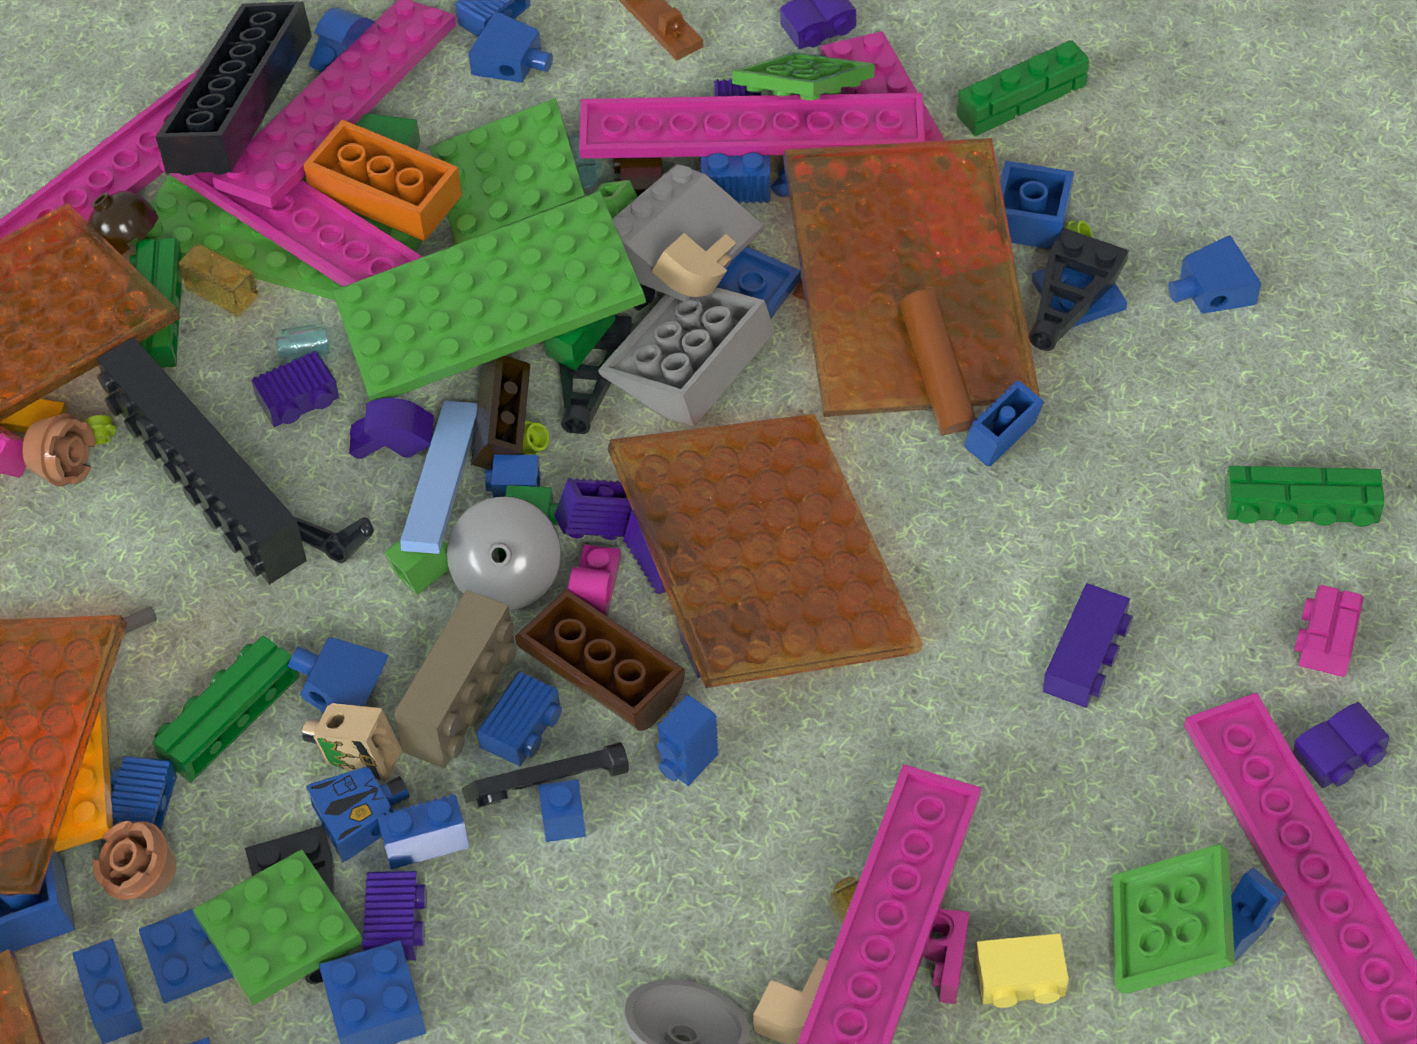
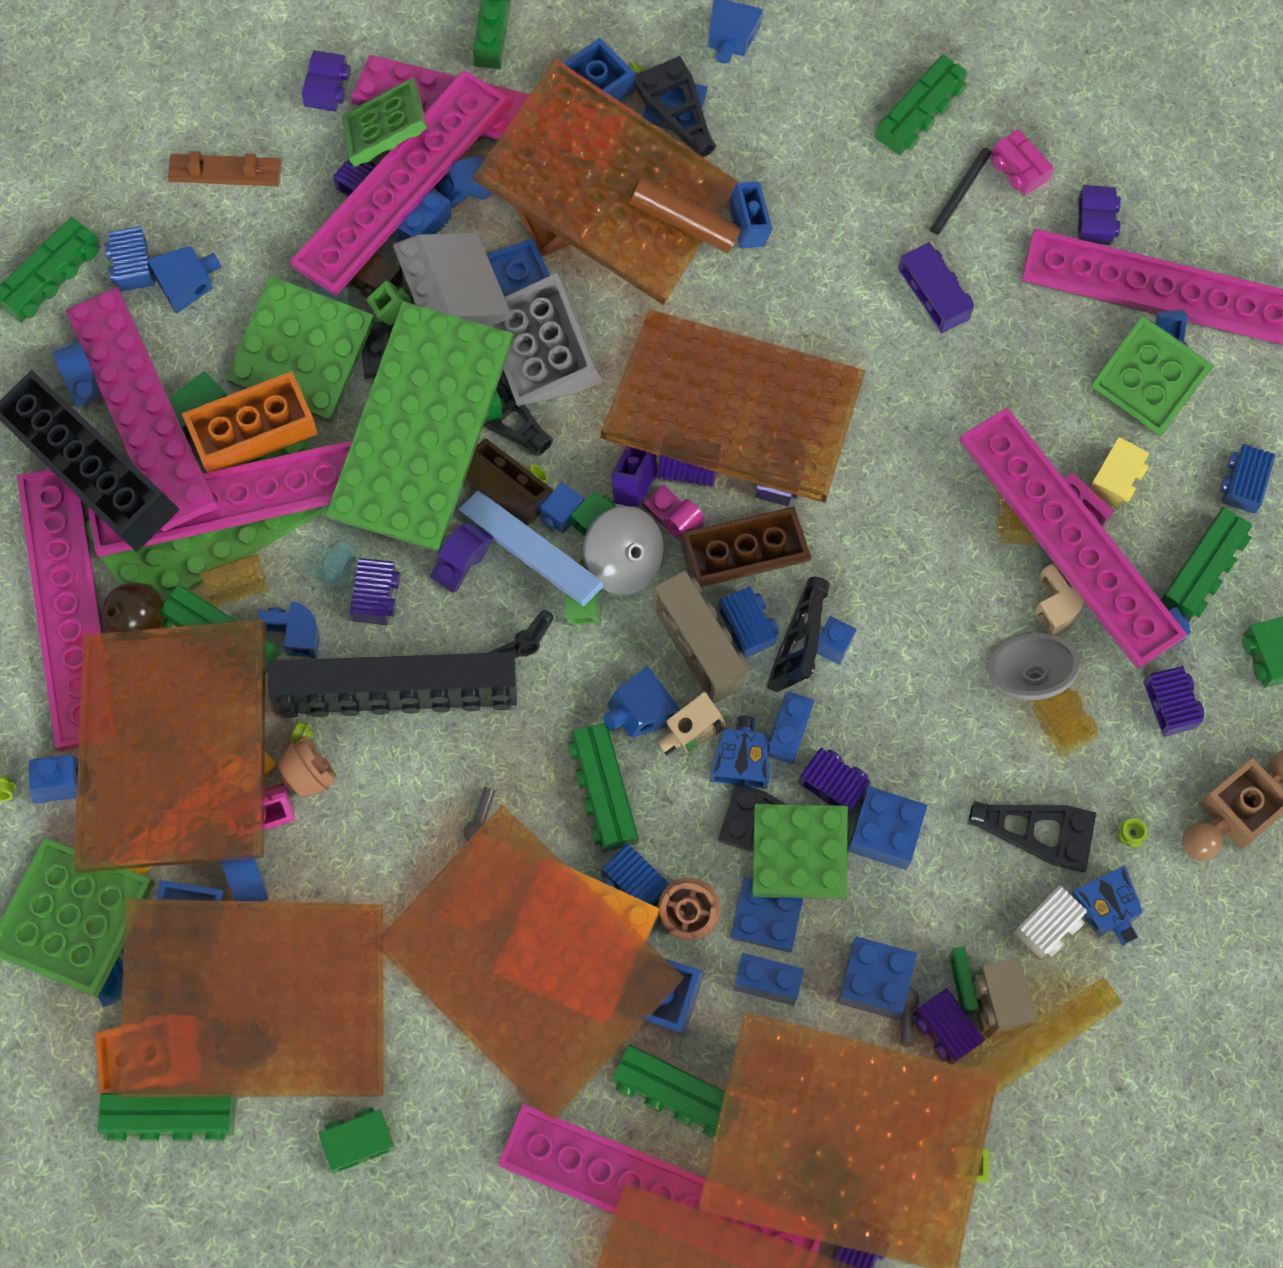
camera: 60 degrees left, 15 degrees up
(207, 359) = (300, 628): none -> blue brick
(687, 740) = (846, 539): blue brick -> none
(691, 269) = (499, 291): tan brick -> none
(1237, 600) = (960, 191): none -> black bar

